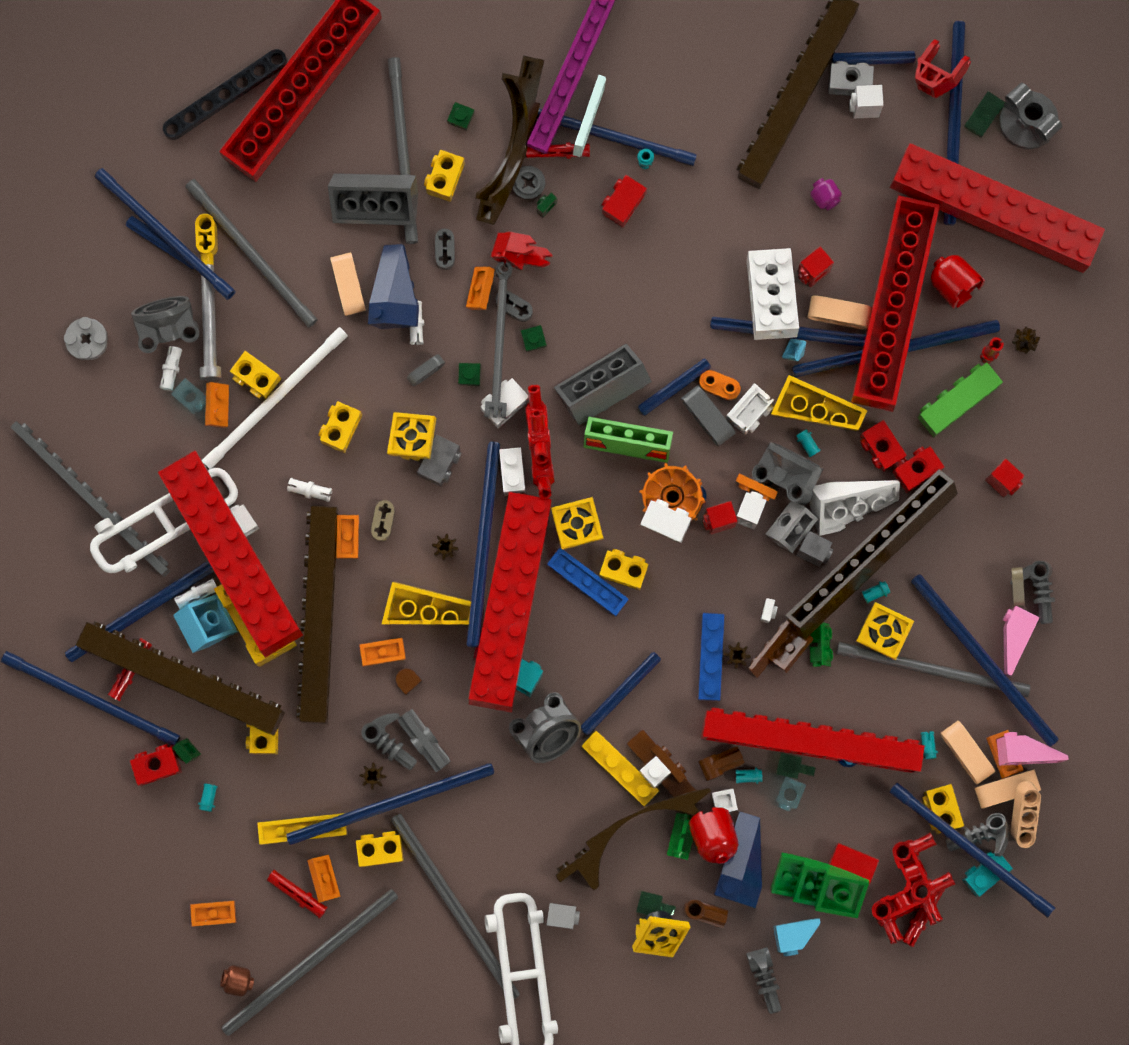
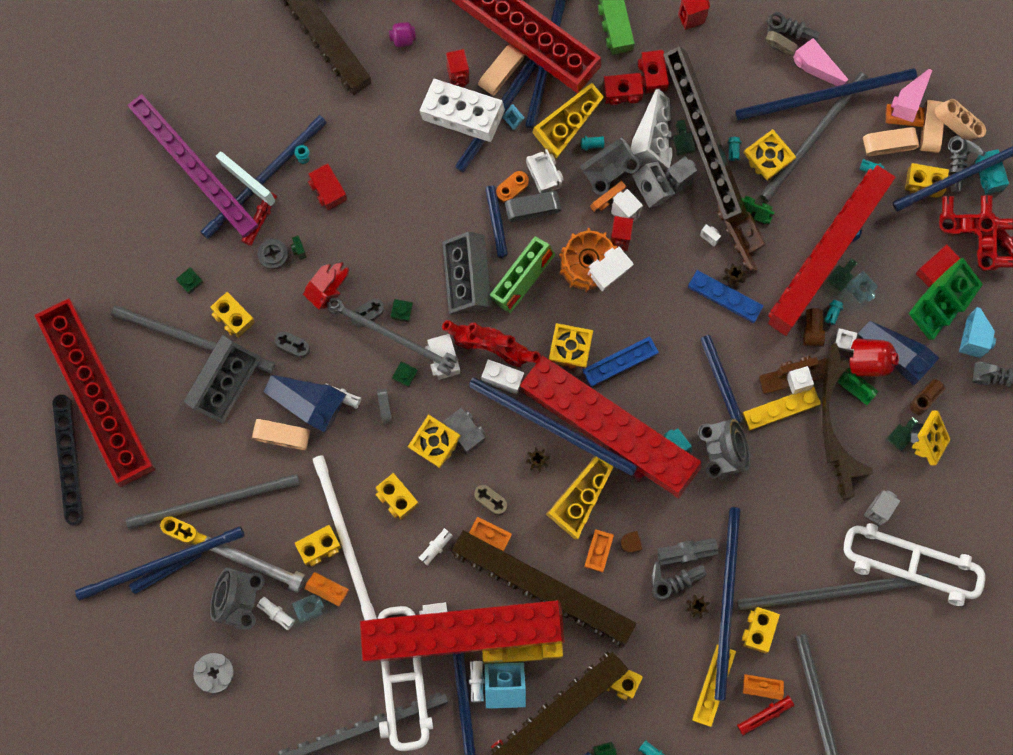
camera: 70 degrees left, 5 degrees down
(480, 288) = (339, 331): orange plate -> none
(523, 95) = (213, 224): dark brown slope -> none
(622, 575) = (628, 332): yellow brick -> none
(857, 534) = (683, 141): none -> clear green plate

